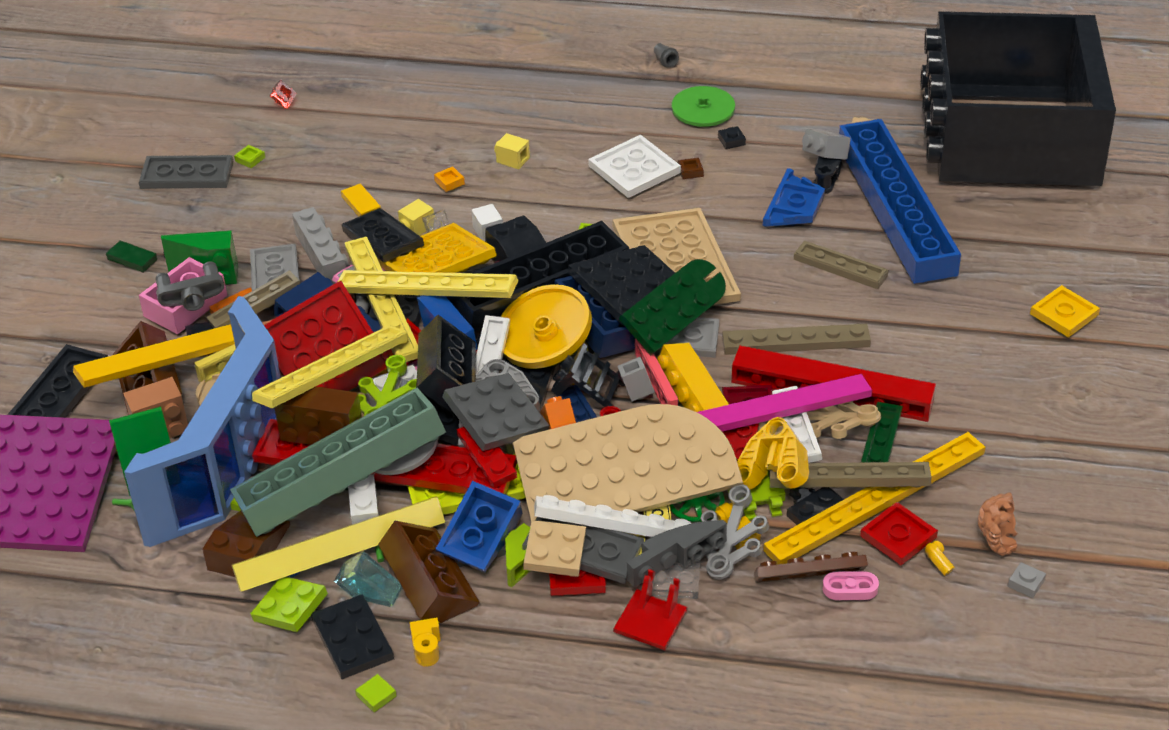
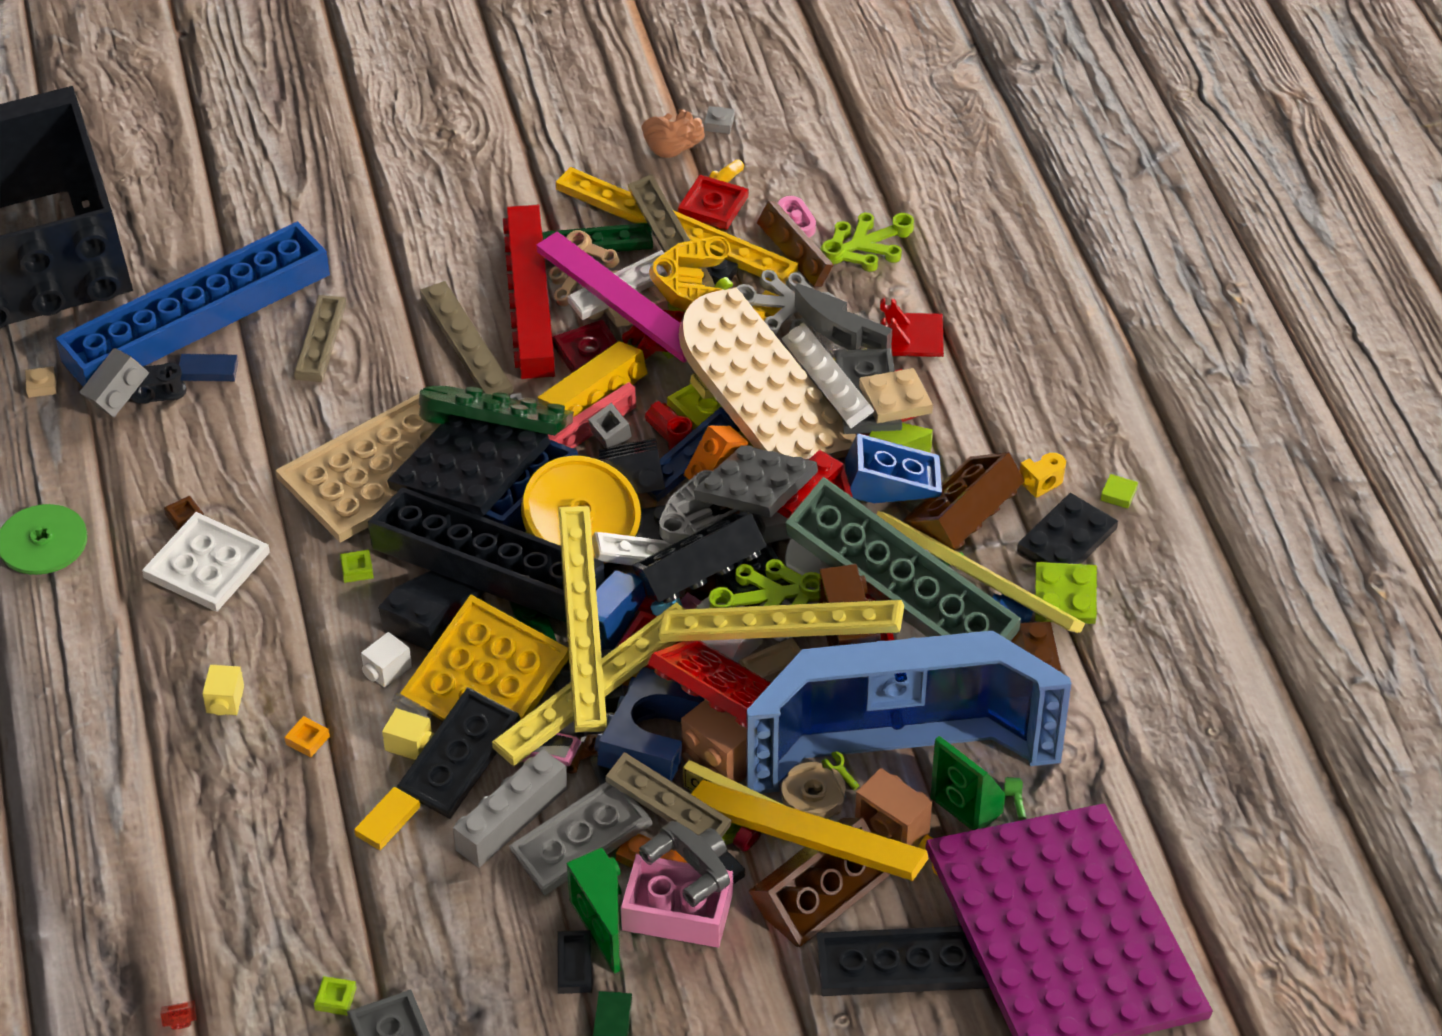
camera: 115 degrees left, 5 degrees up
(367, 577) = (1003, 544): clear light blue slope -> none
(731, 137) = (103, 493): black plate -> none
(792, 600) = (838, 251): none -> lime plant
(794, 201) = (221, 398): blue wing -> none
(835, 203) = (208, 367): none -> dark blue tile
(1065, 311) = (331, 155): yellow plate -> none

